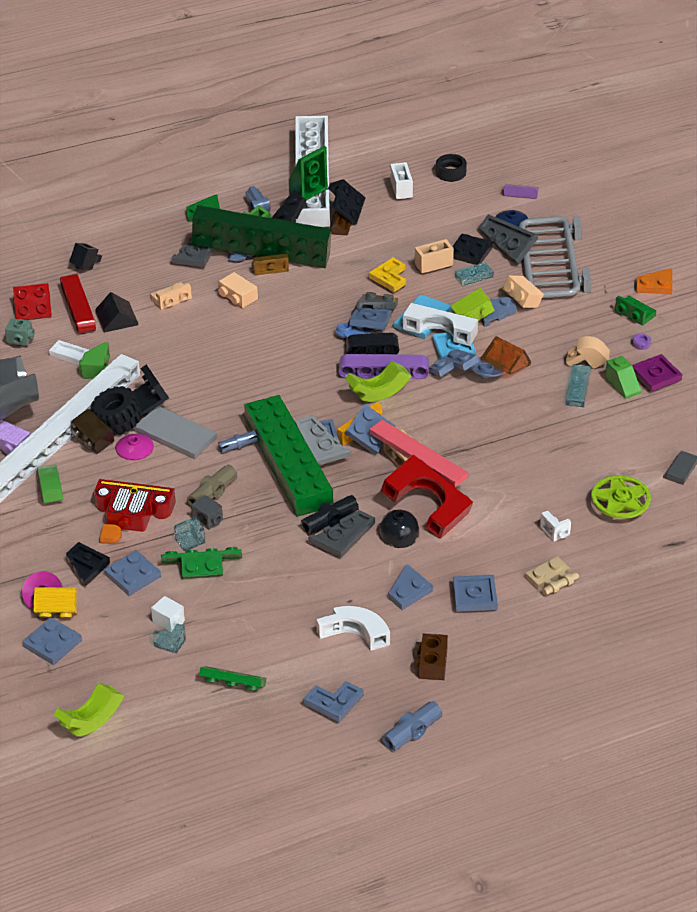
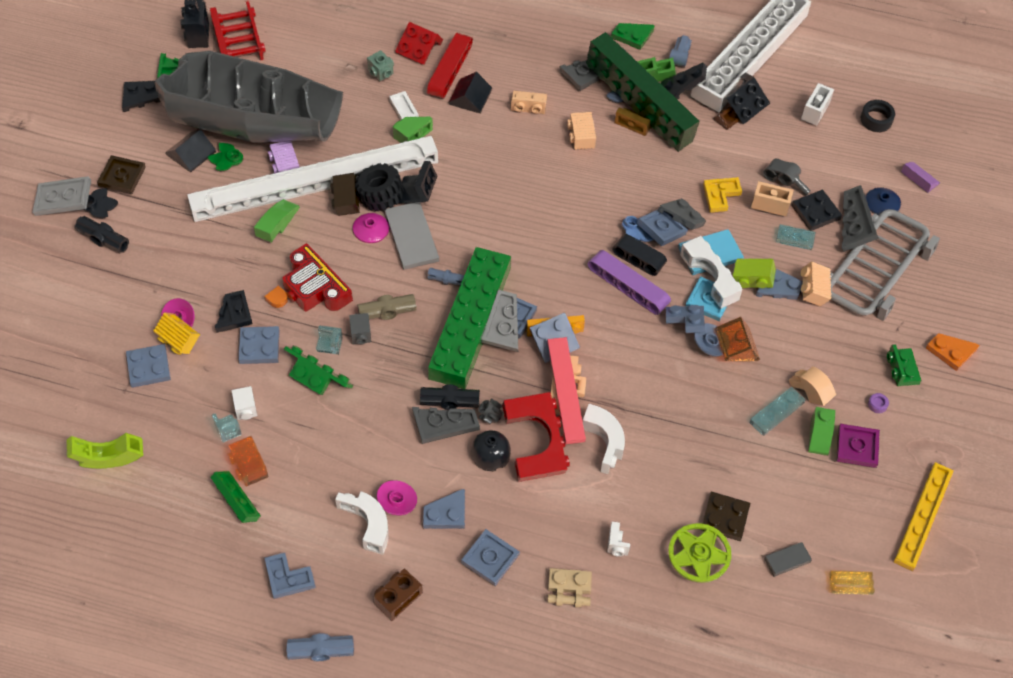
camera: 35 degrees right, 15 degrees up
(84, 256) = (493, 23): black brick -> none
(216, 648) = (248, 461): none -> clear orange brick
(310, 174) = (726, 57): green slope -> none
(363, 597) = (400, 492): none -> dark pink dish
(372, 503) = (490, 411): none -> dark grey gear
(382, 386) = (605, 300): lime arch -> none
(424, 234) = (786, 173): none -> dark grey beam
(478, 466) = (609, 429): none -> white arch
(611, 464) = (727, 515): none -> dark brown plate

